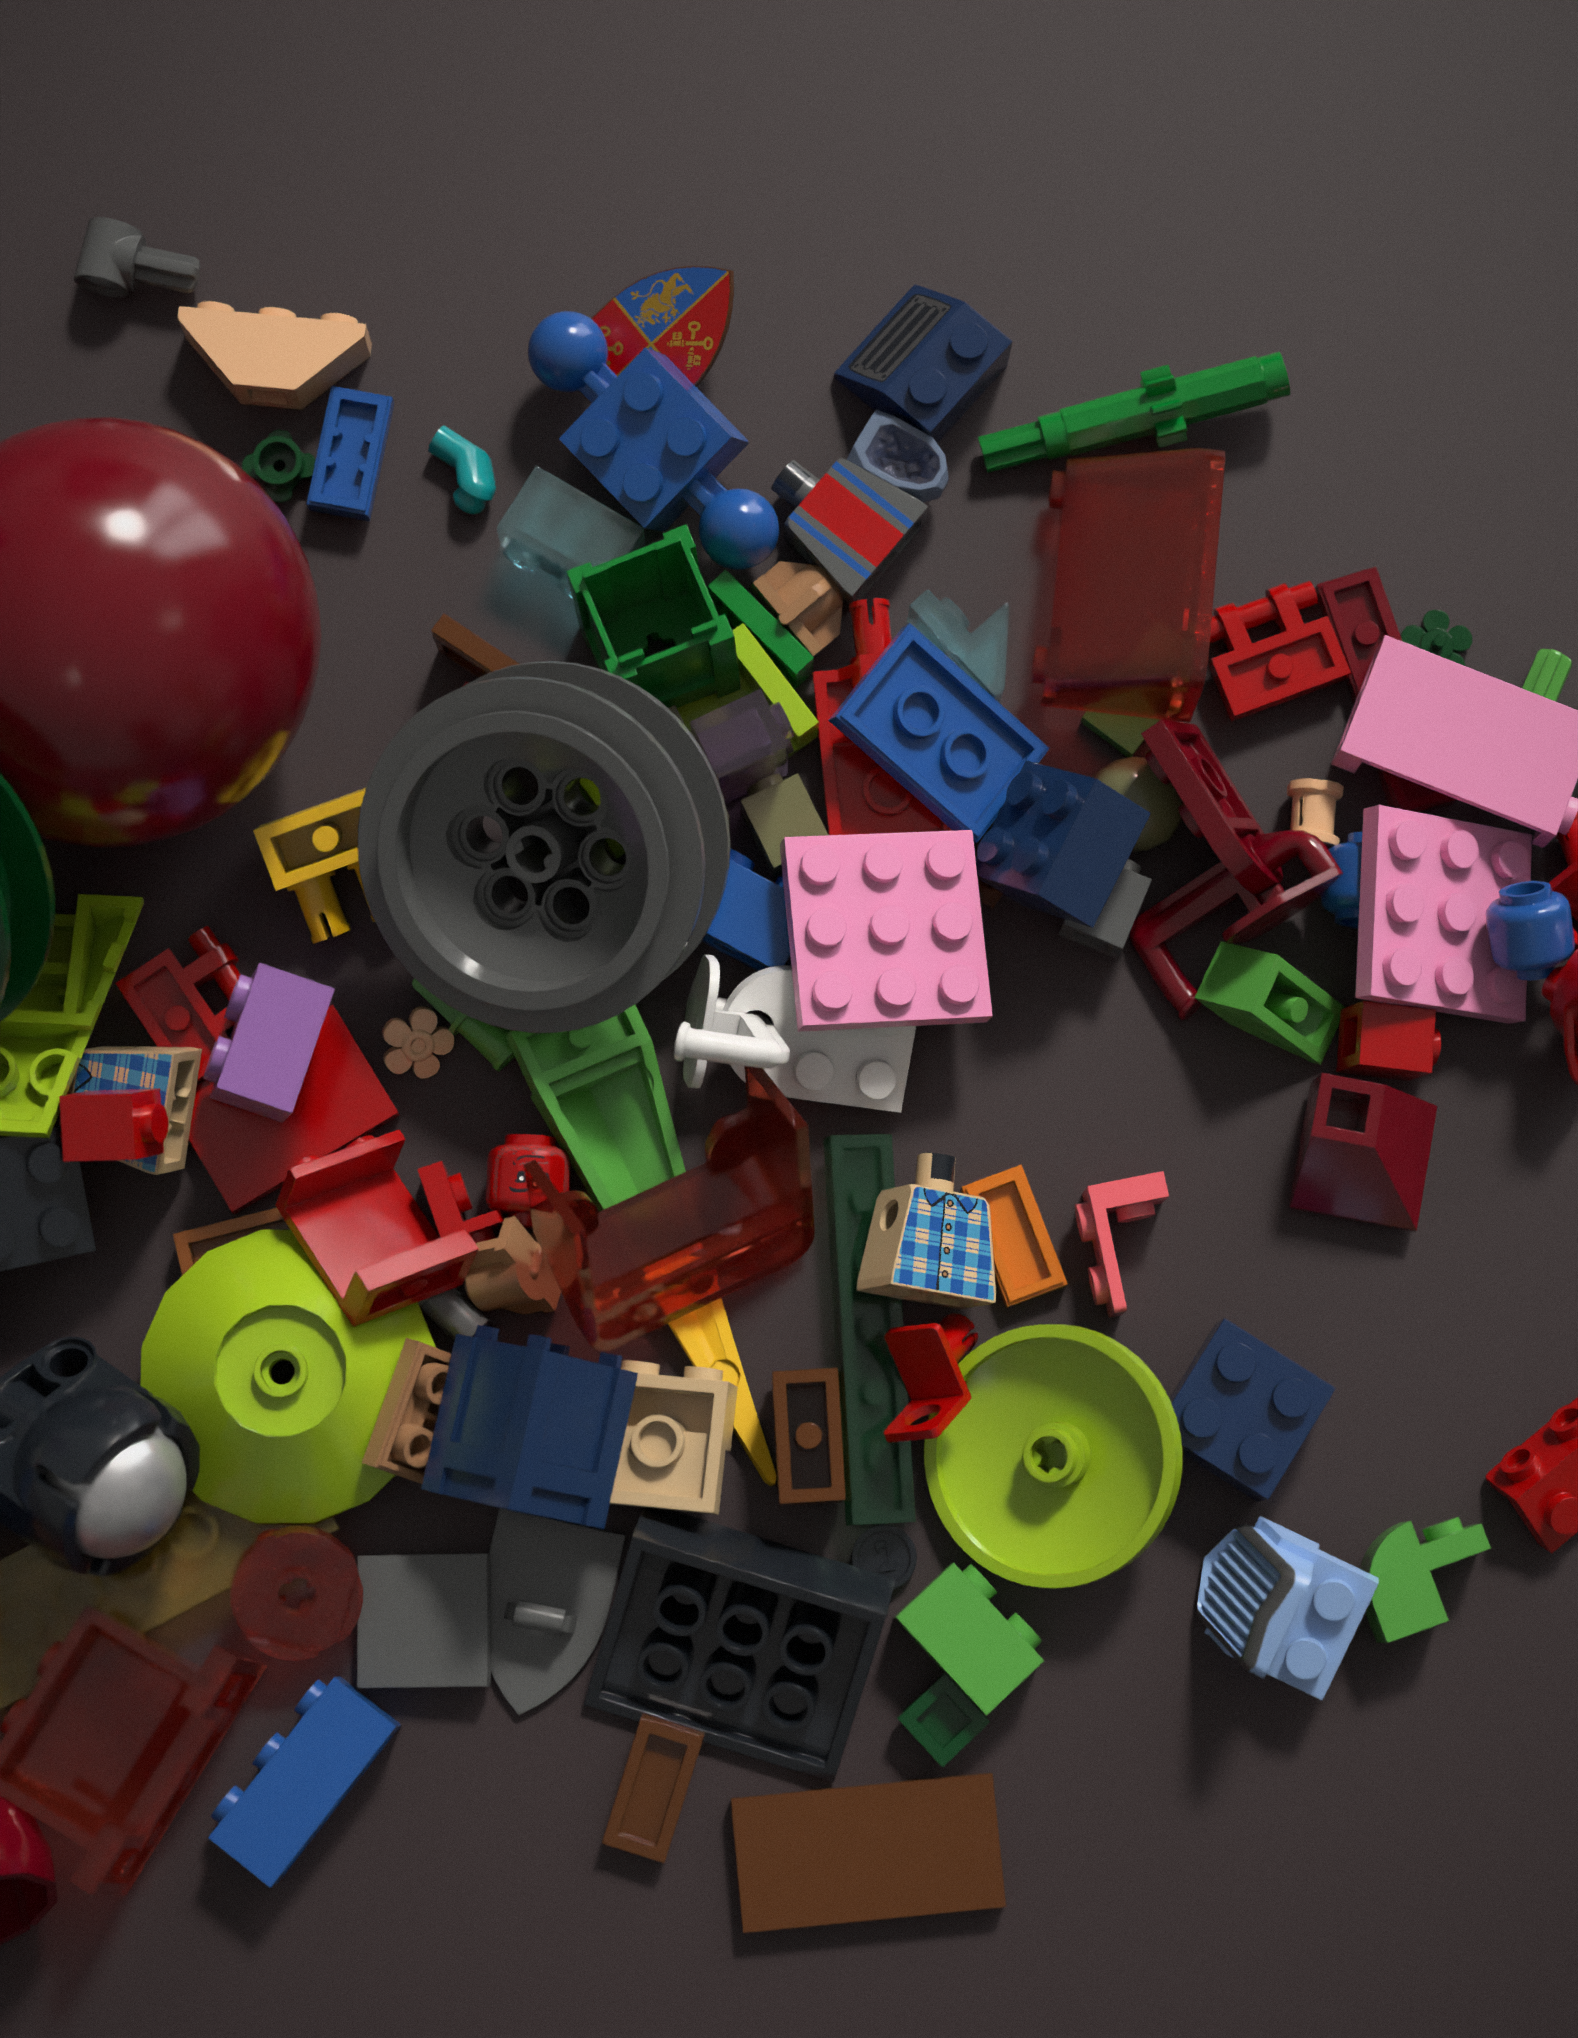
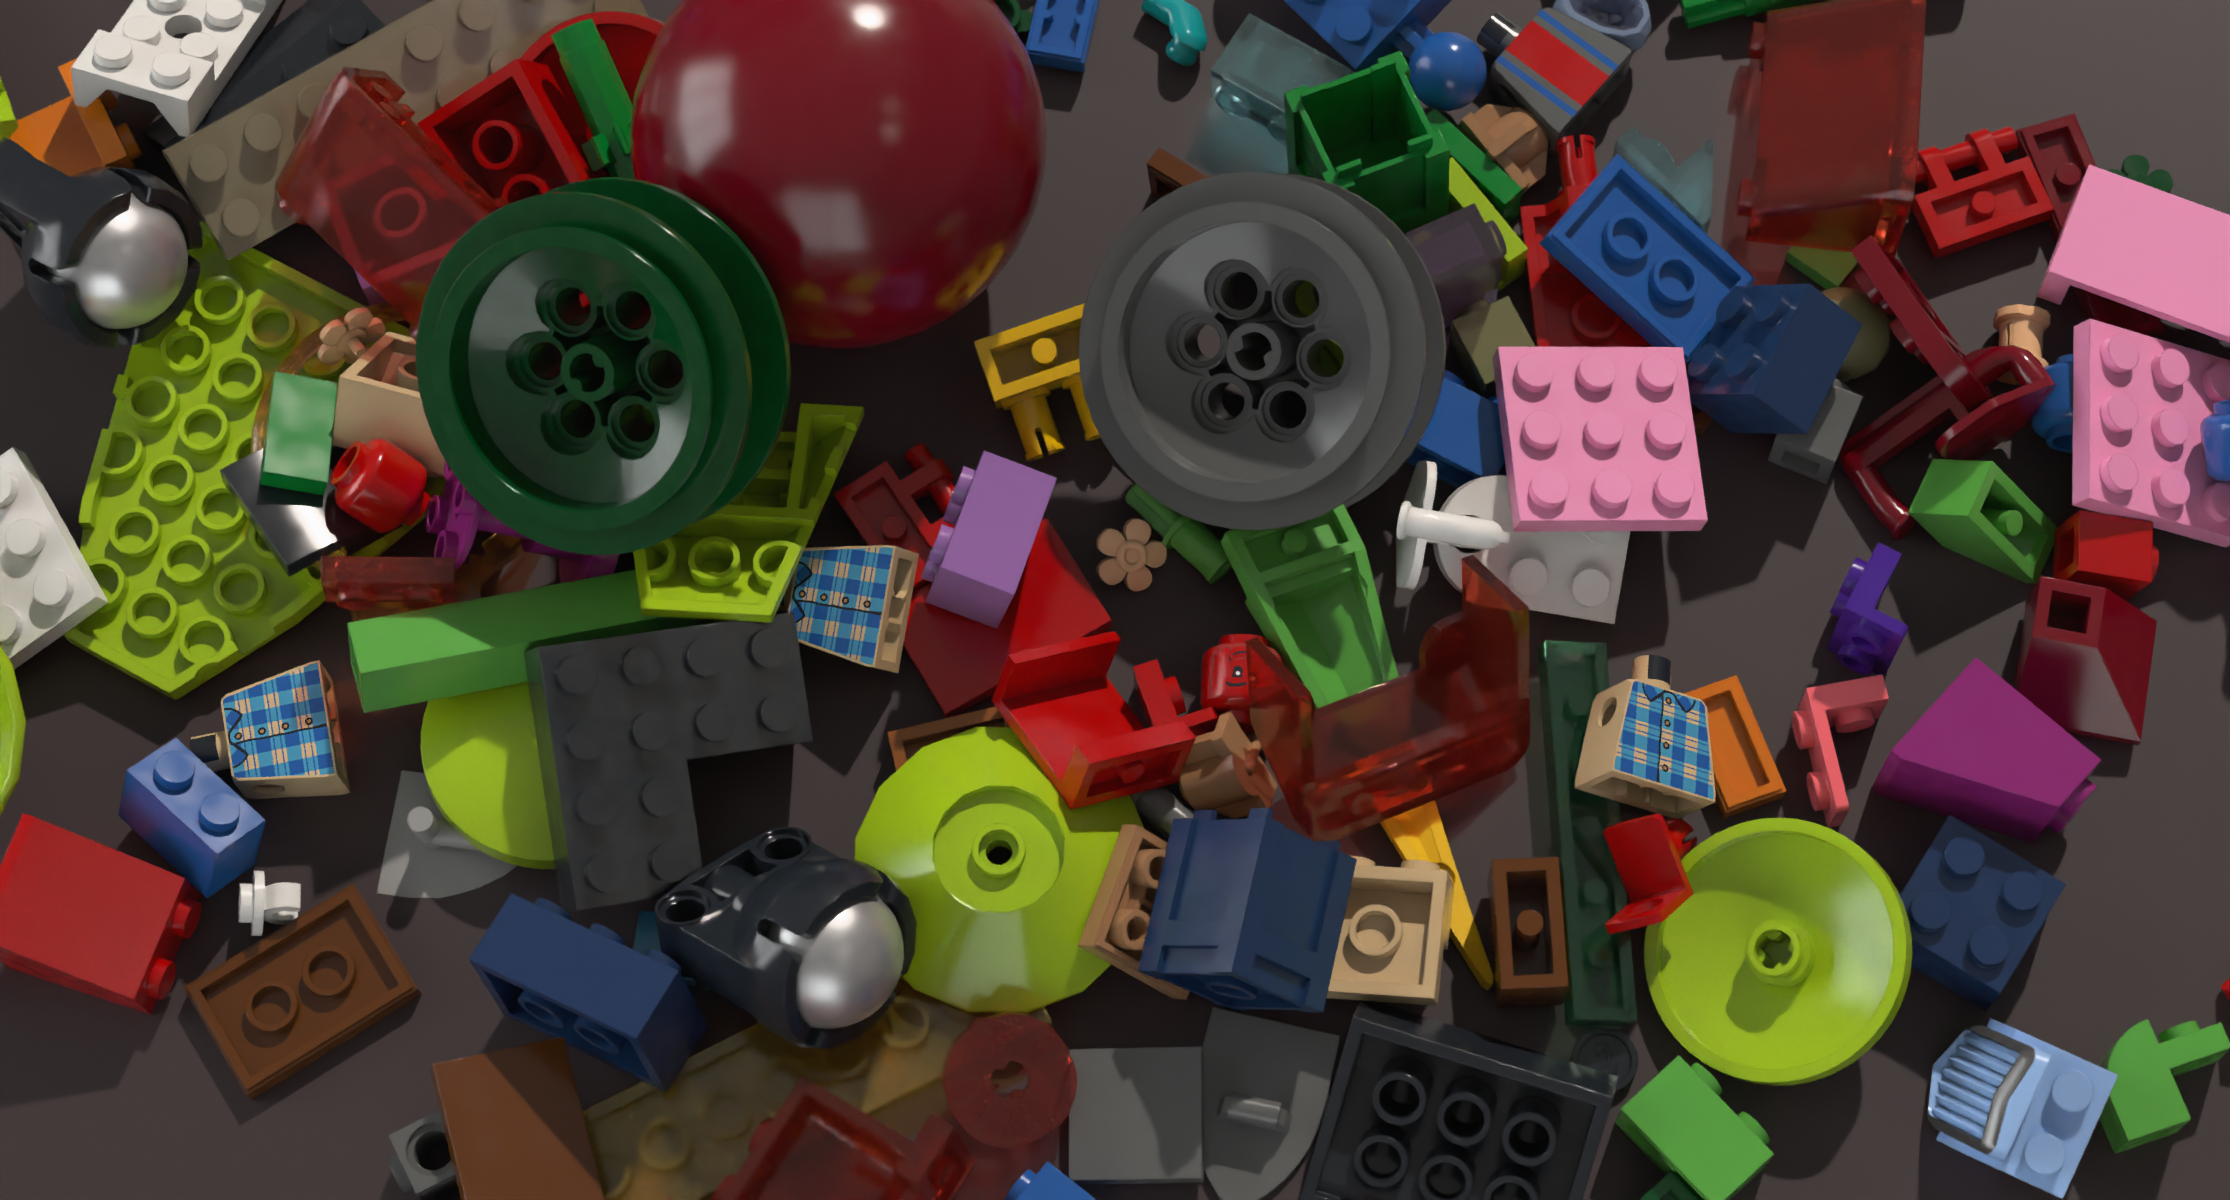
camera: 10 degrees right, 10 degrees down
(112, 1125) = (834, 612): red brick -> none
(1141, 1094) = (1864, 636): none -> dark purple bracket
(1267, 1259) = (1990, 760): none -> magenta slope

